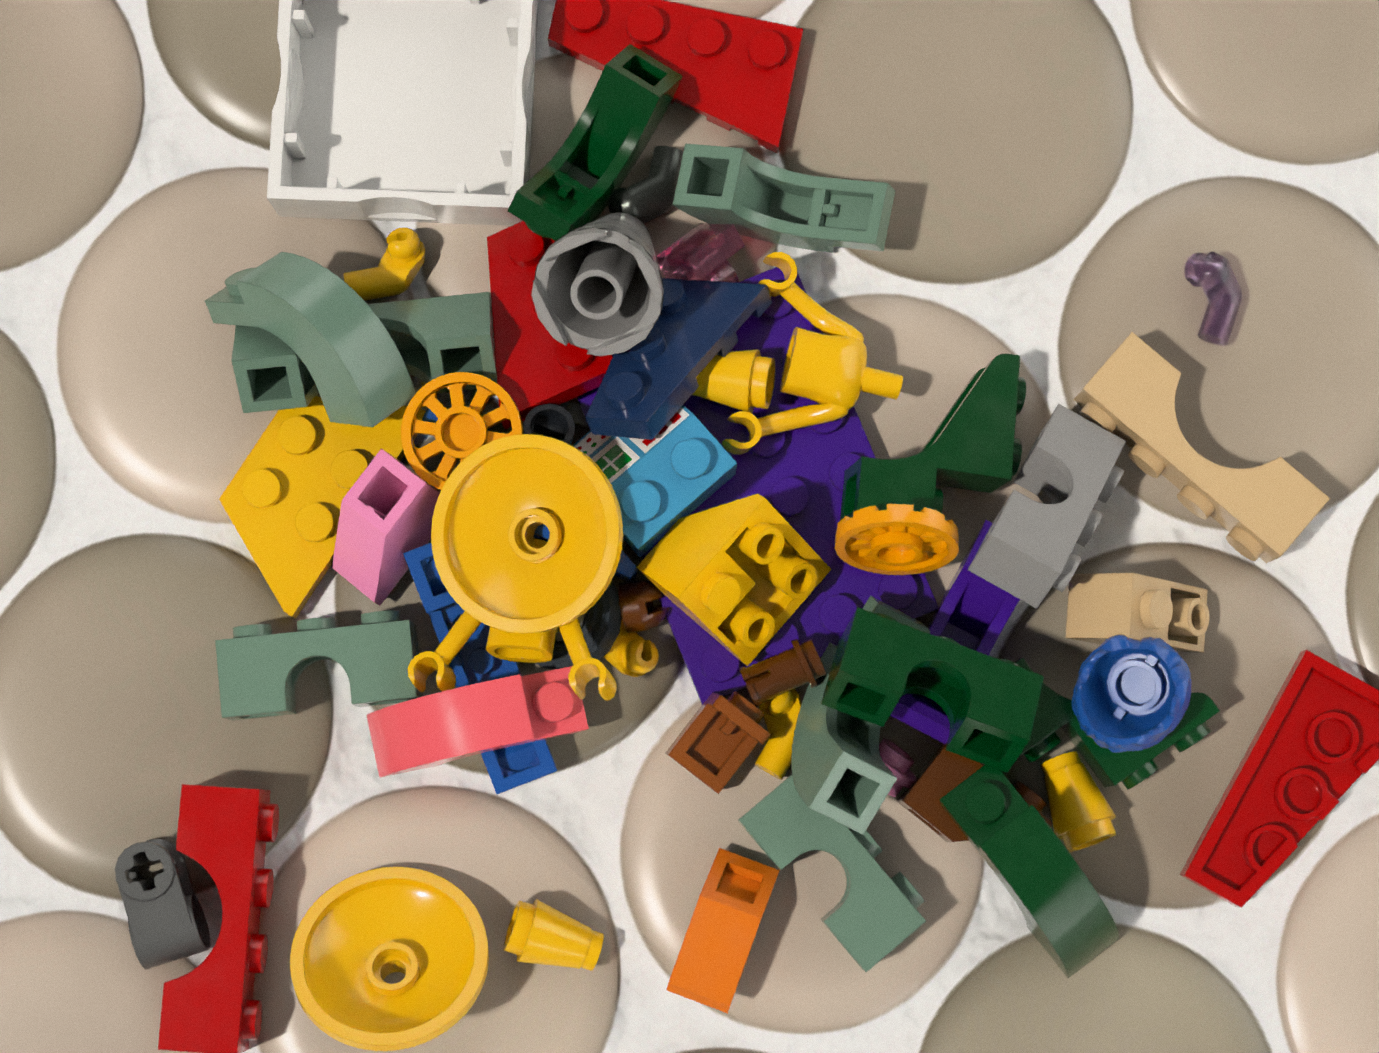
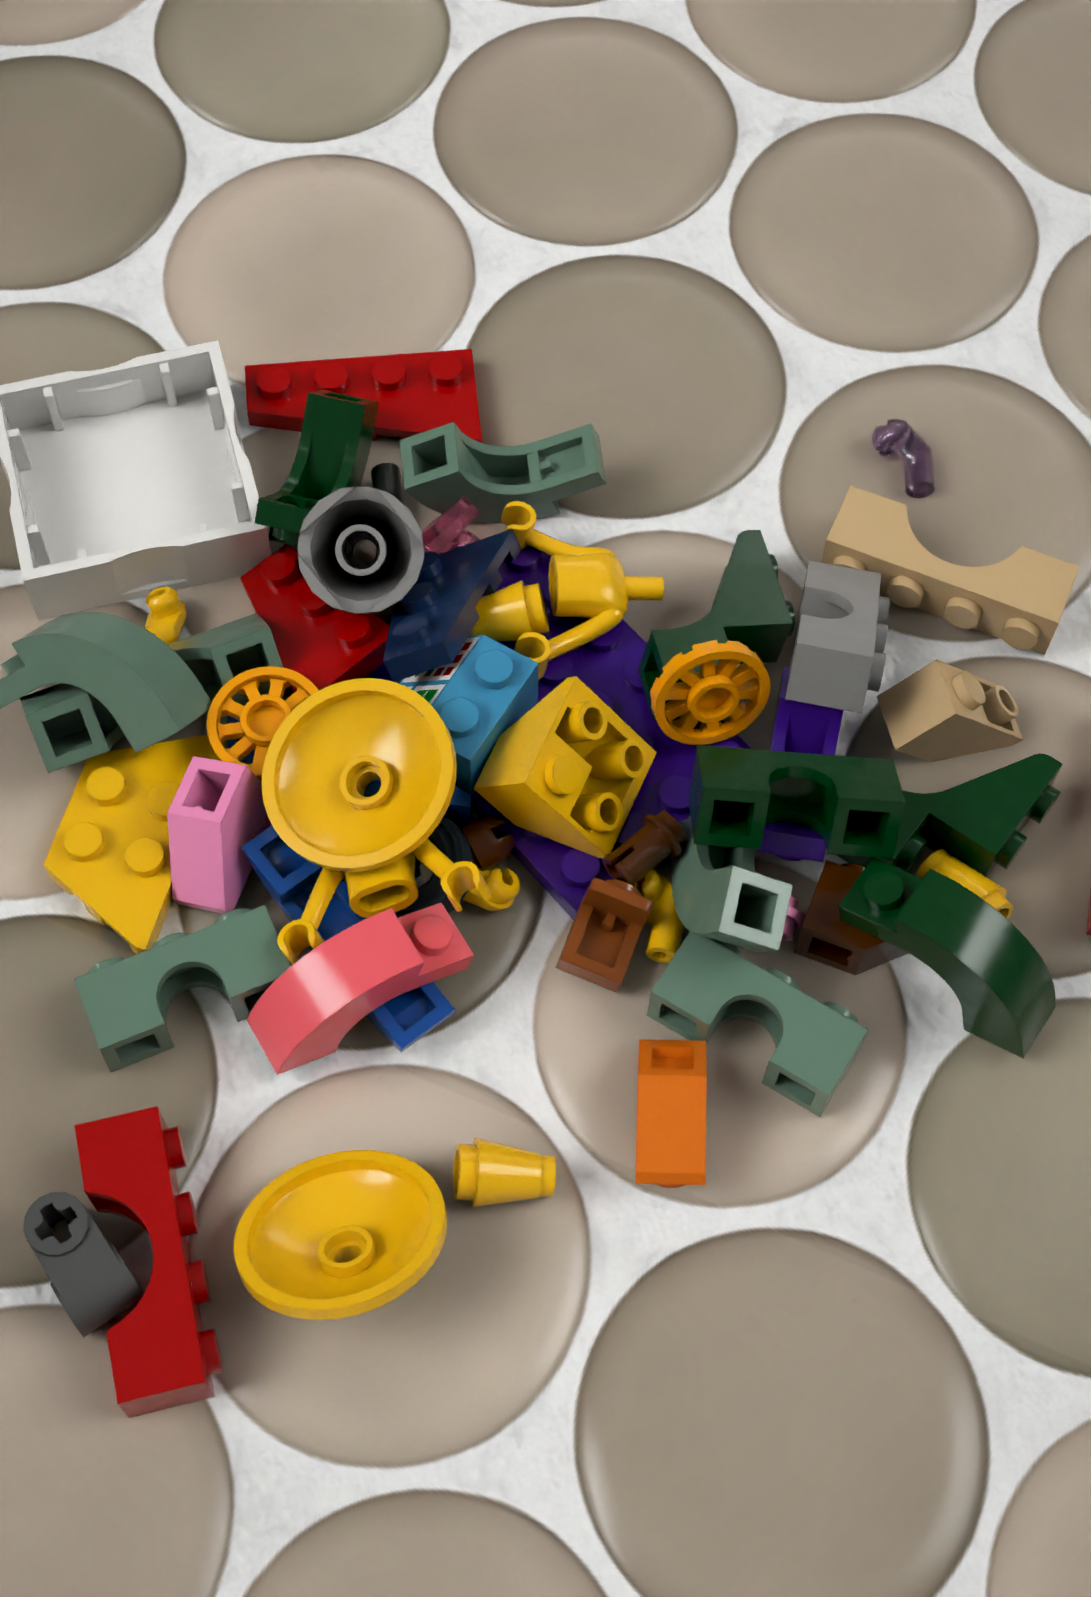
camera: 20 degrees left, 20 degrees down
(1131, 693) = (978, 758): blue hair -> none

